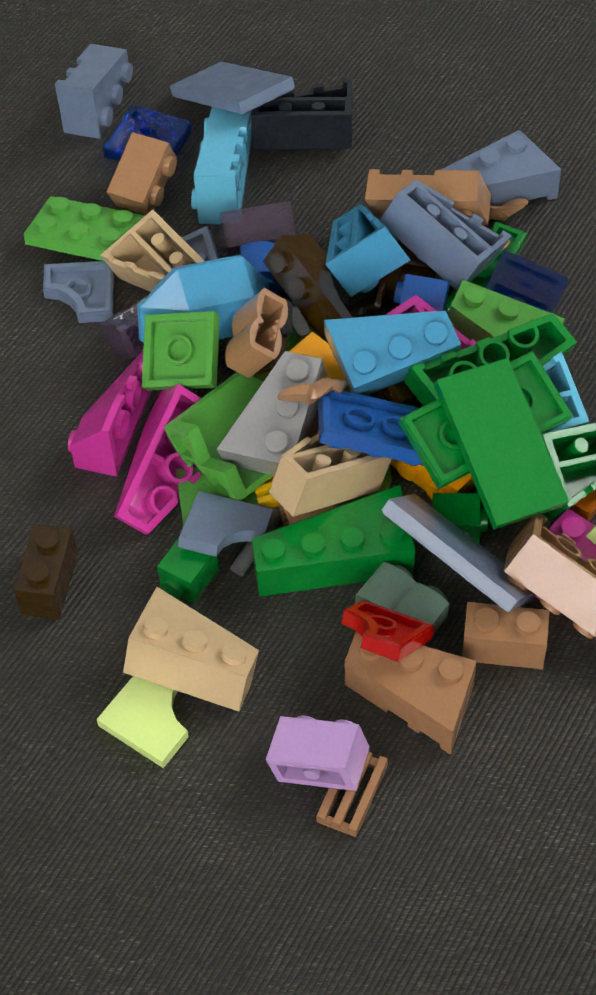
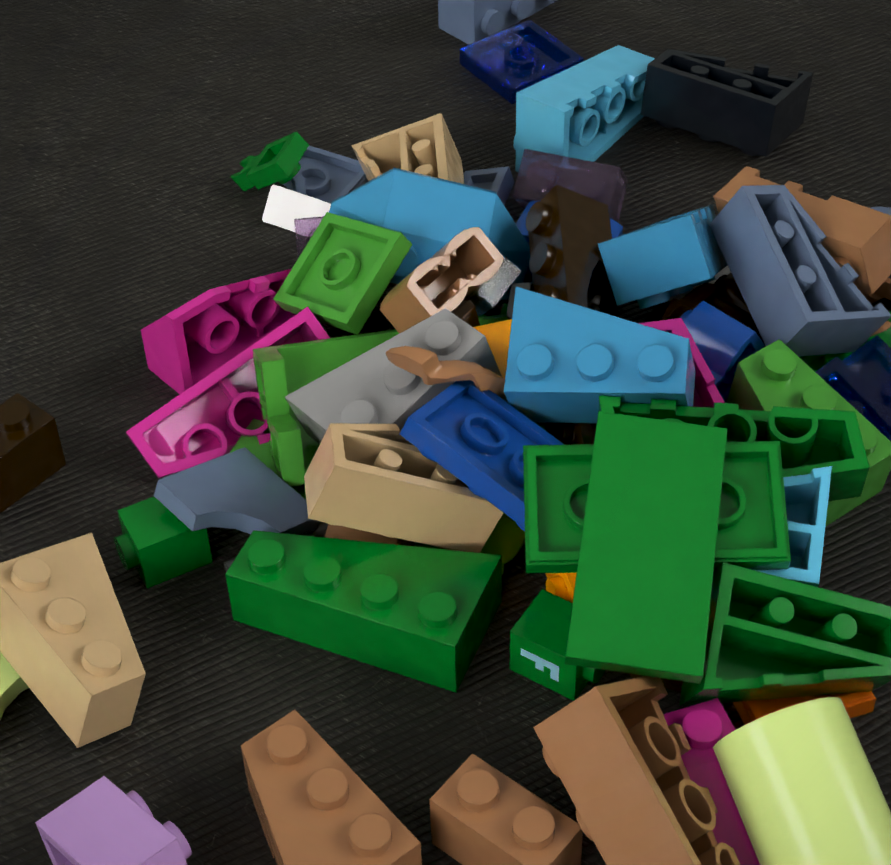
camera: 30 degrees right, 10 degrees down
(52, 289) = (275, 164): none -> green plate
(78, 227) = (353, 112): bright green plate -> none
(89, 315) = (286, 205): none -> white sticker
(142, 174) = (477, 86): medium nougat brick -> none
(232, 87) = (656, 35): sand blue tile -> none
(386, 630) = (322, 733): red tile -> none
(397, 590) = (398, 720): sand green brick -> none
(456, 550) = (495, 667): sand blue tile -> none

